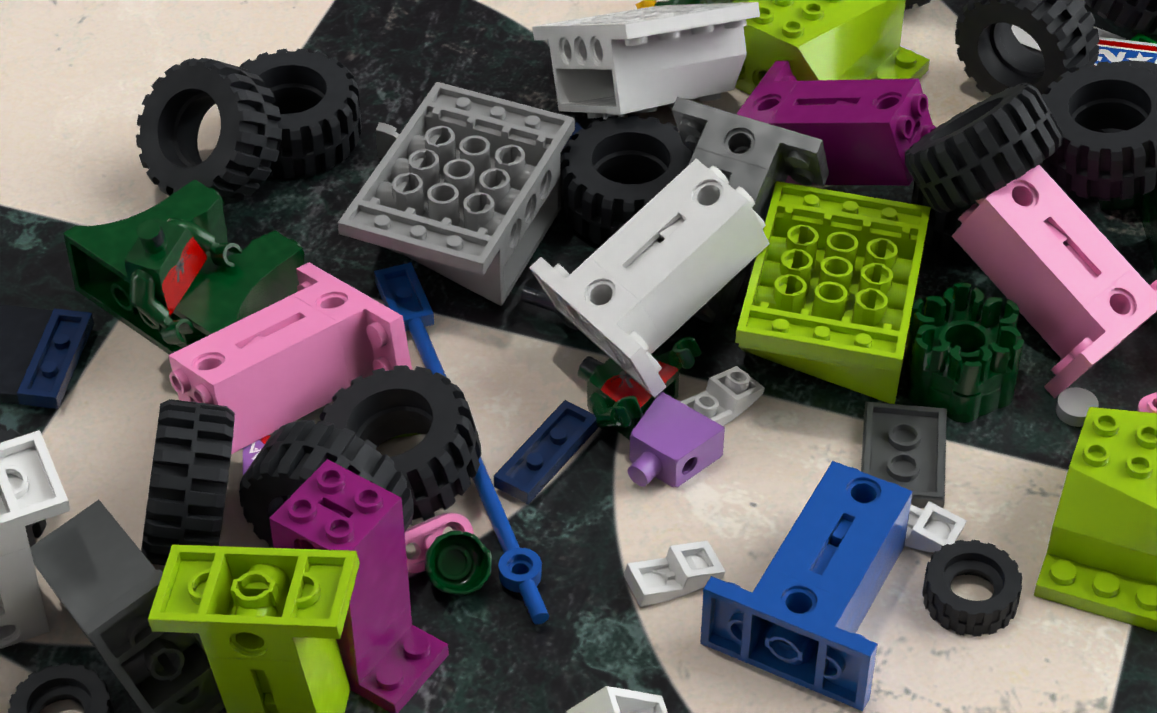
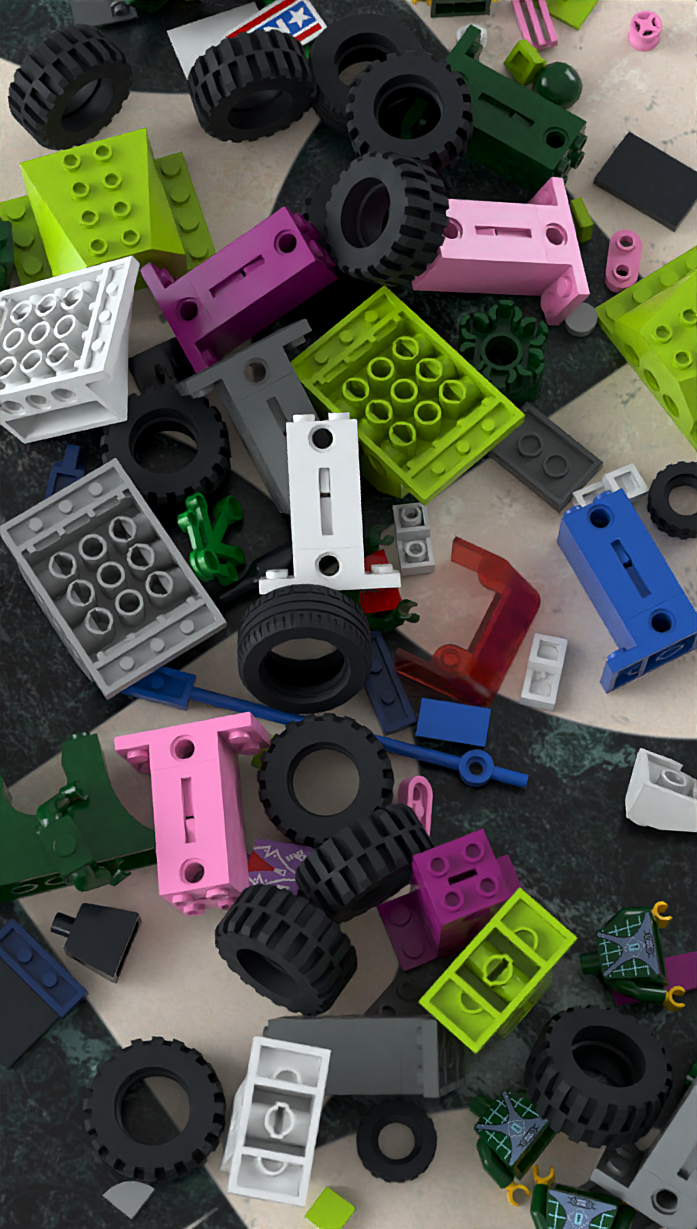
camera: 55 degrees left, 25 degrees up
(116, 383) = (98, 937): none -> black torso
(458, 563) = (452, 806): dark green hair -> none
(532, 229) = (204, 557): none -> green plant
(550, 334) = (303, 613): none -> black tyre
(553, 524) = (453, 722): none -> blue hinge
(666, 503) = (479, 672): none -> clear red windscreen
(673, 443) = (439, 597): medium lavender torso -> none

